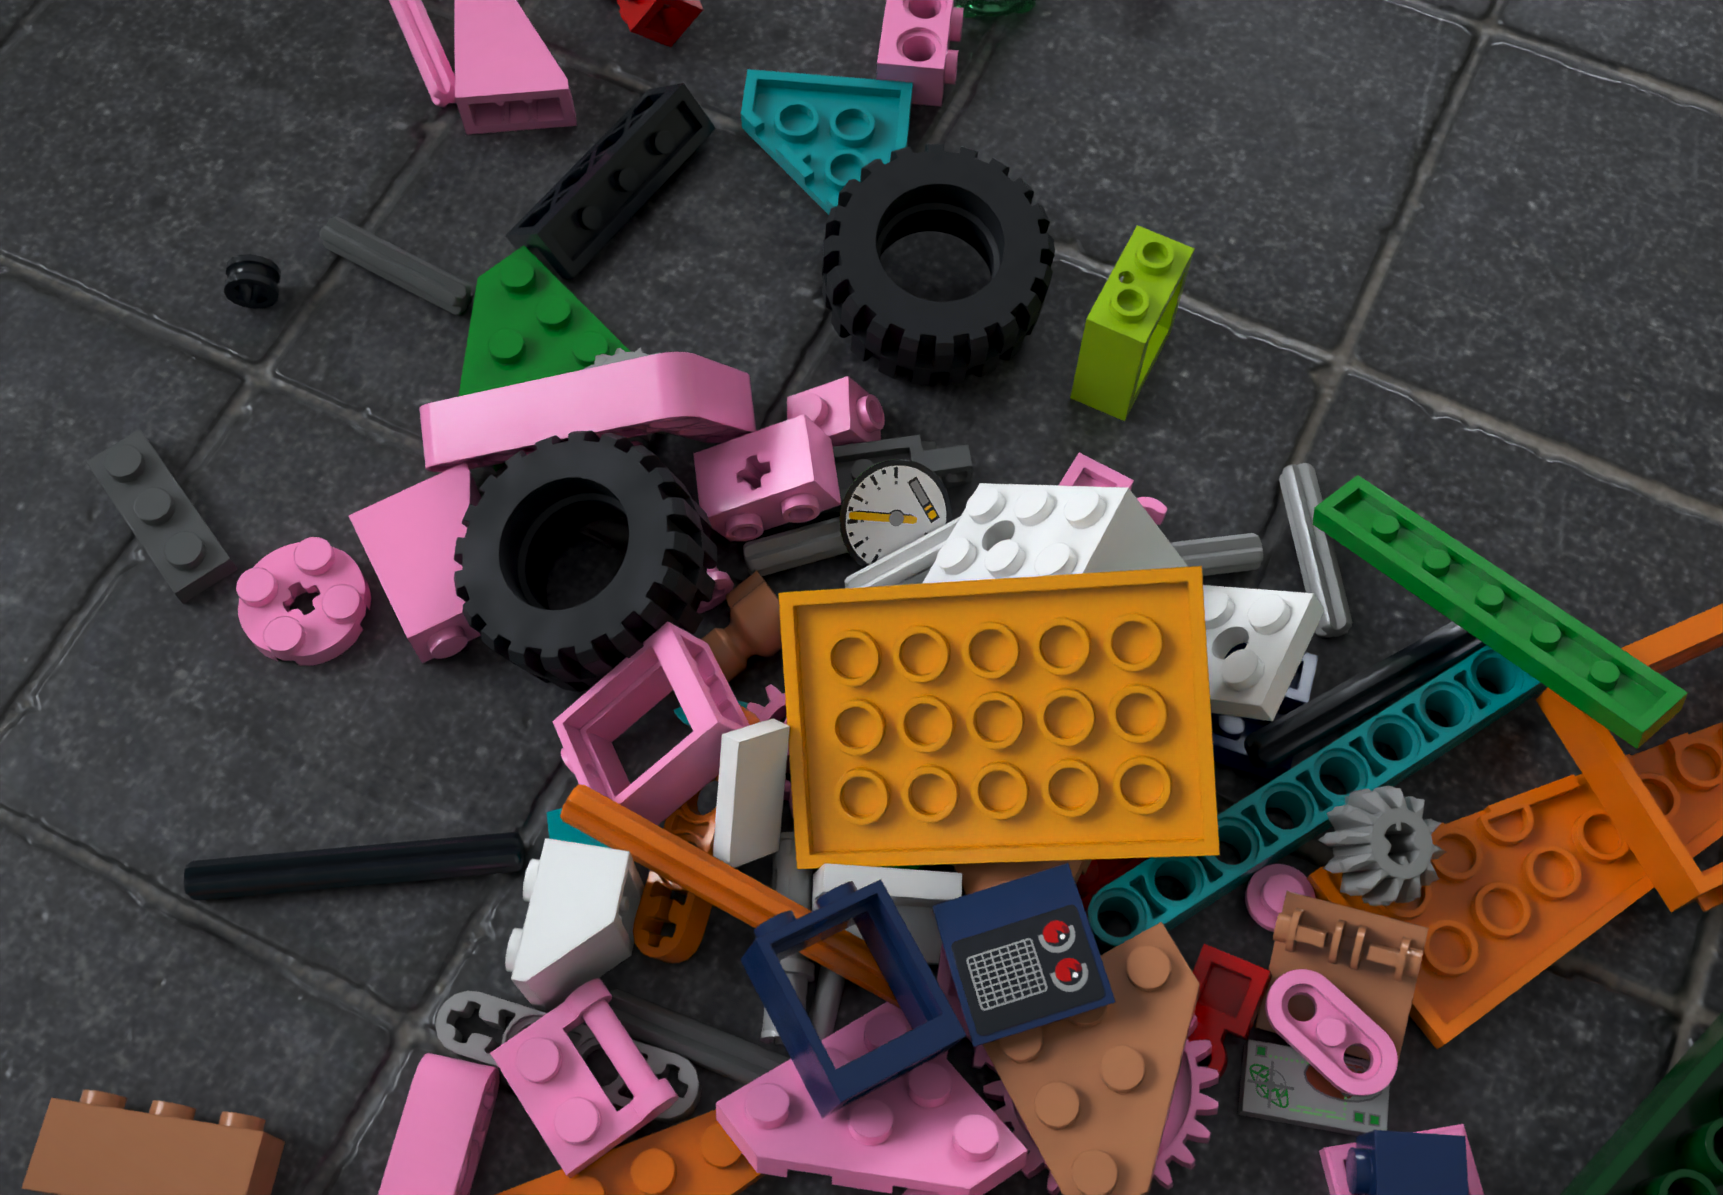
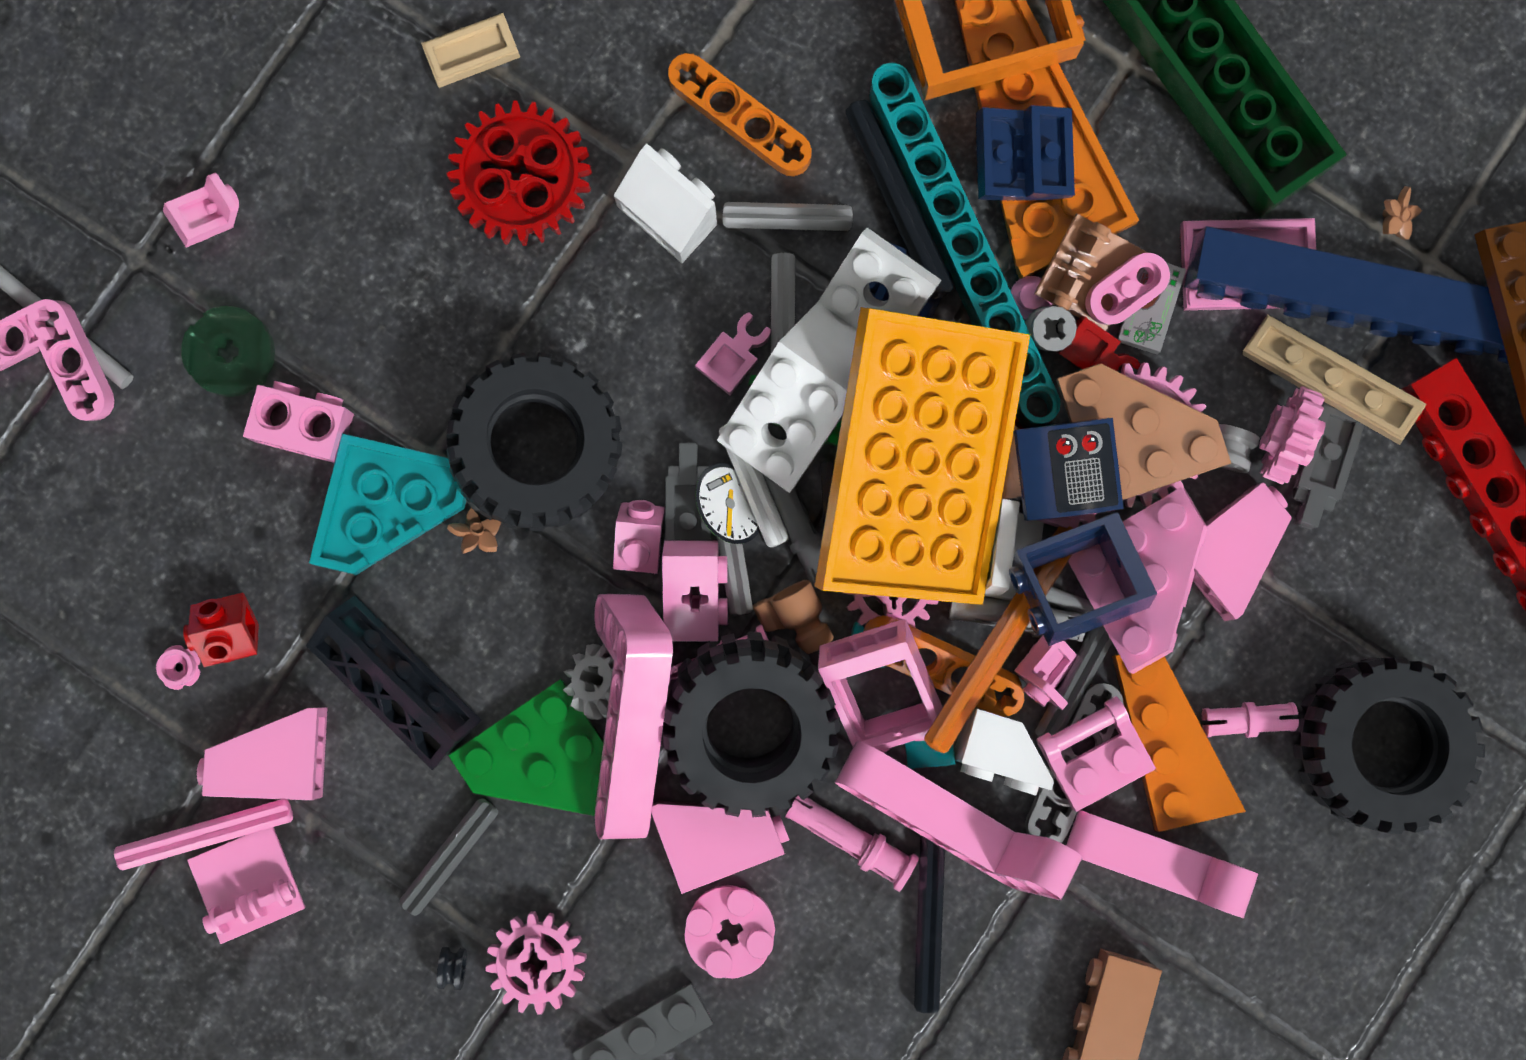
camera: 85 degrees left, 20 degrees up
(264, 367) = (516, 964): none -> bright pink gear
(352, 66) = (245, 885): none -> bright pink hinge
(411, 967) = (1010, 857): none -> bright pink beam
(422, 768) = (870, 851): none -> bright pink pin
(708, 986) = (1044, 670): none -> bright pink bracket
(750, 792) = (936, 627): white tile -> none
(809, 237) = (476, 533): none -> nougat plant
(1130, 322) = (600, 299): lime window -> none
(1241, 937) = (1043, 323): none -> light grey wheel
(1293, 386) = (666, 203): none -> white slope
(1327, 221) = (530, 136): none -> red gear
(1382, 846) = (1022, 229): light grey gear -> none
(1429, 162) = (470, 50): none -> tan tile
(1445, 474) = (744, 109): none -> orange beam
(1501, 612) = (873, 115): green plate -> none
(1503, 849) = (1025, 153): none -> dark blue slope

